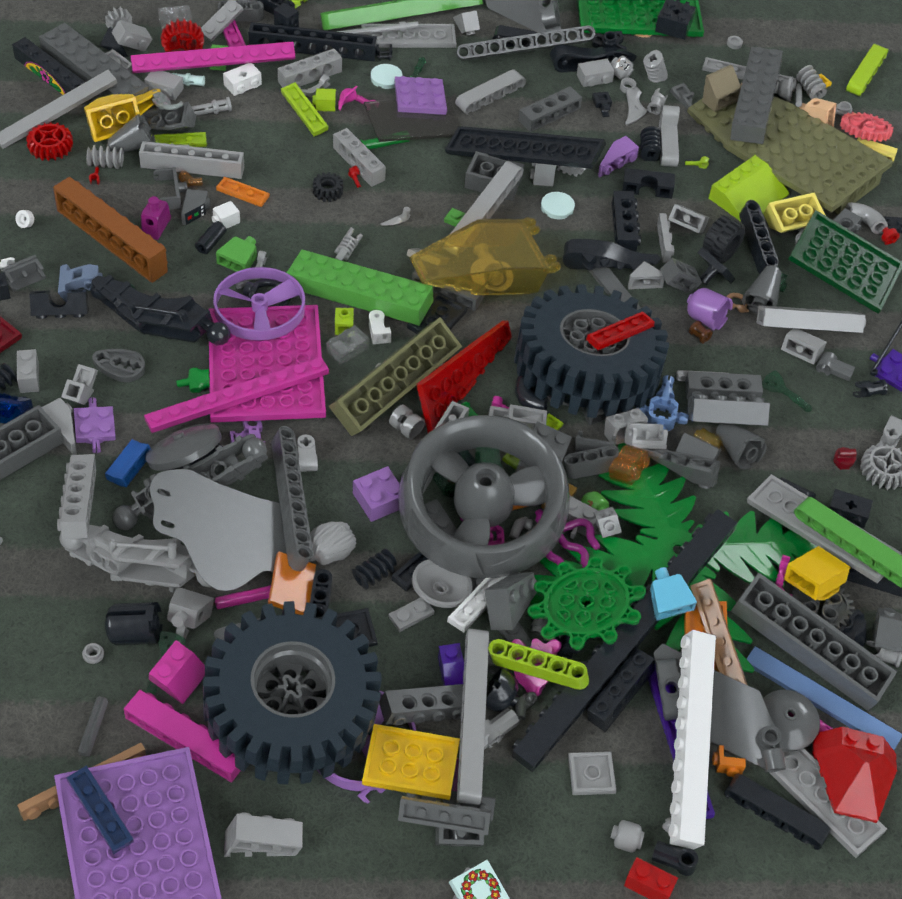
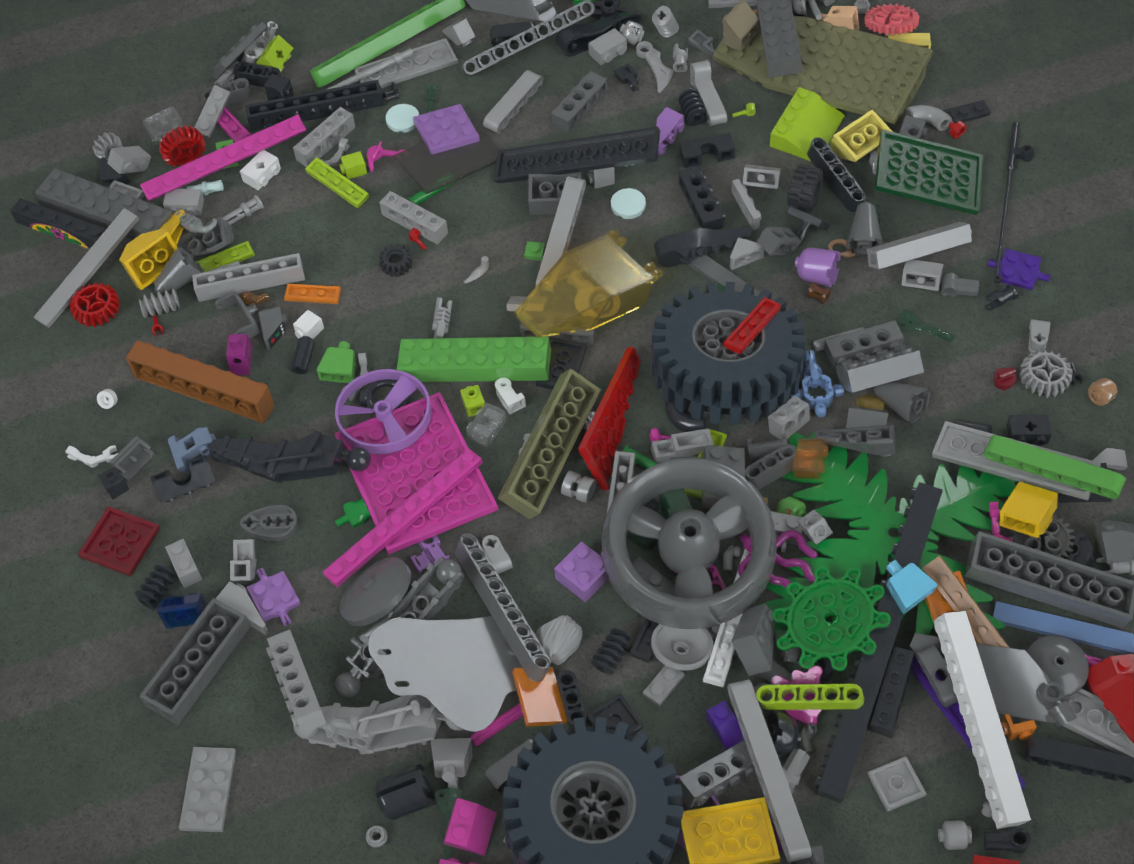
camera: 10 degrees left, 5 degrees up
(128, 463) = (325, 626): blue piece -> none
(646, 435) = (813, 422): light grey hinge -> none

